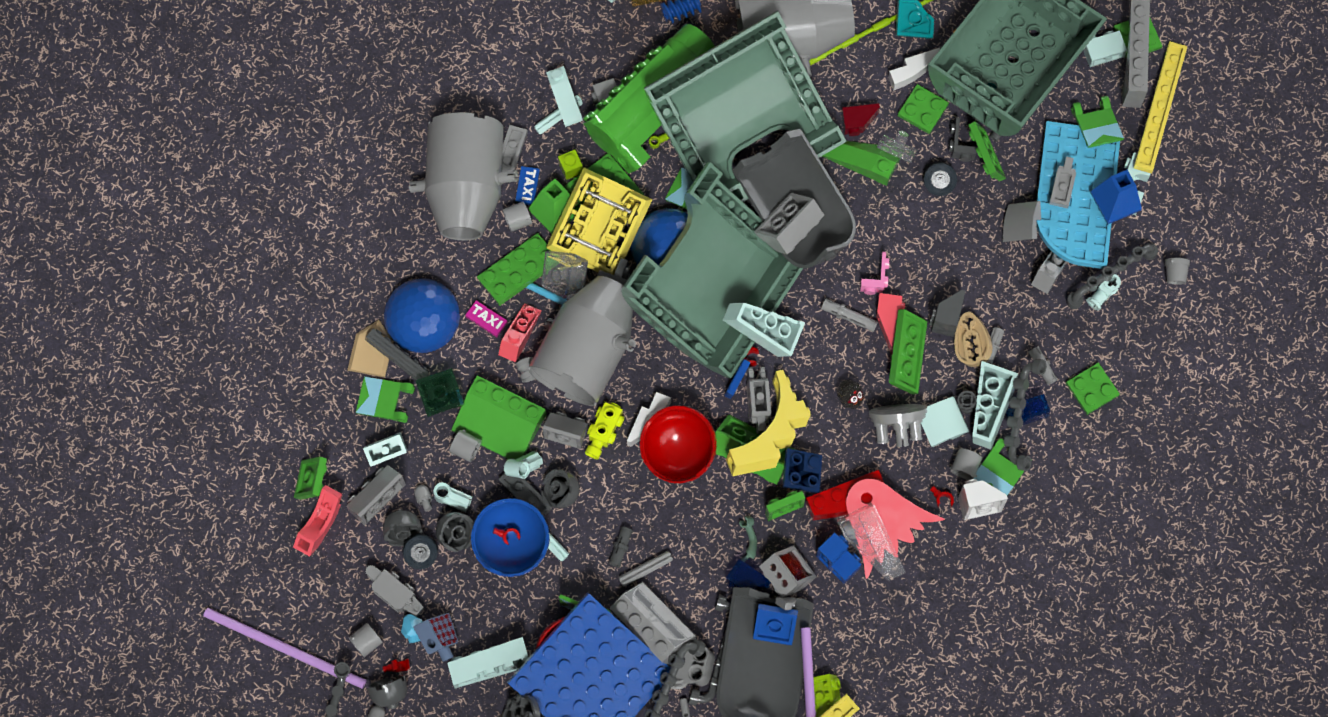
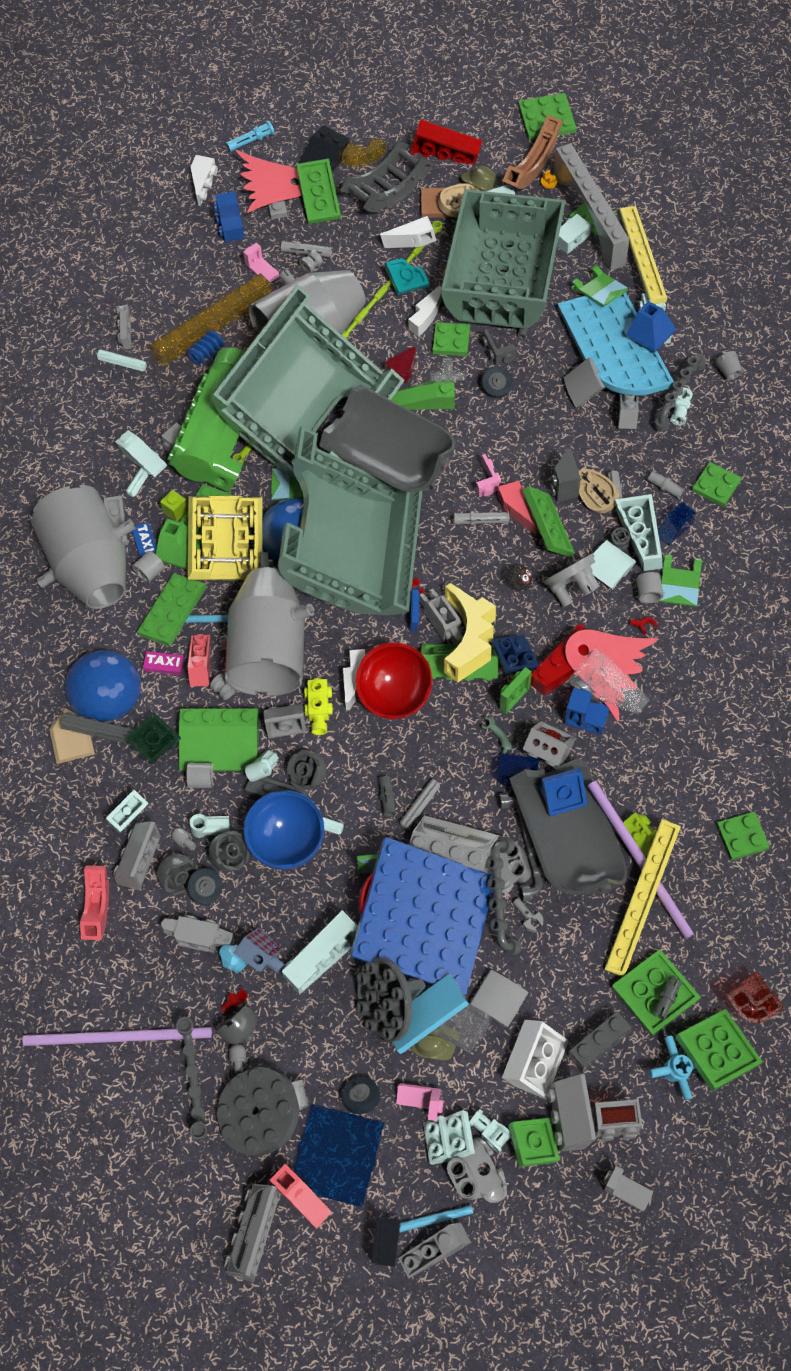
camera: 25 degrees left, 10 degrees down
(310, 478) = (68, 869): bright green plate -> none
(365, 640) = (192, 989): light grey piece -> none
(380, 398) = (101, 773): bright green flag -> none
(502, 533) = (274, 832): red piece -> none
(564, 273) = (214, 591): clear slope -> none
(766, 328) = (418, 554): light aqua wedge -> none
(785, 602) = (564, 767): light grey tile -> none
(790, 223) = (393, 459): light grey slope -> none
(980, 499) = (681, 605): white slope -> none
(986, 151) = (524, 344): bright green plate -> none
(1019, 403) = (666, 518): dark grey bar -> none
(1063, 184) = (601, 338): light grey hinge -> none

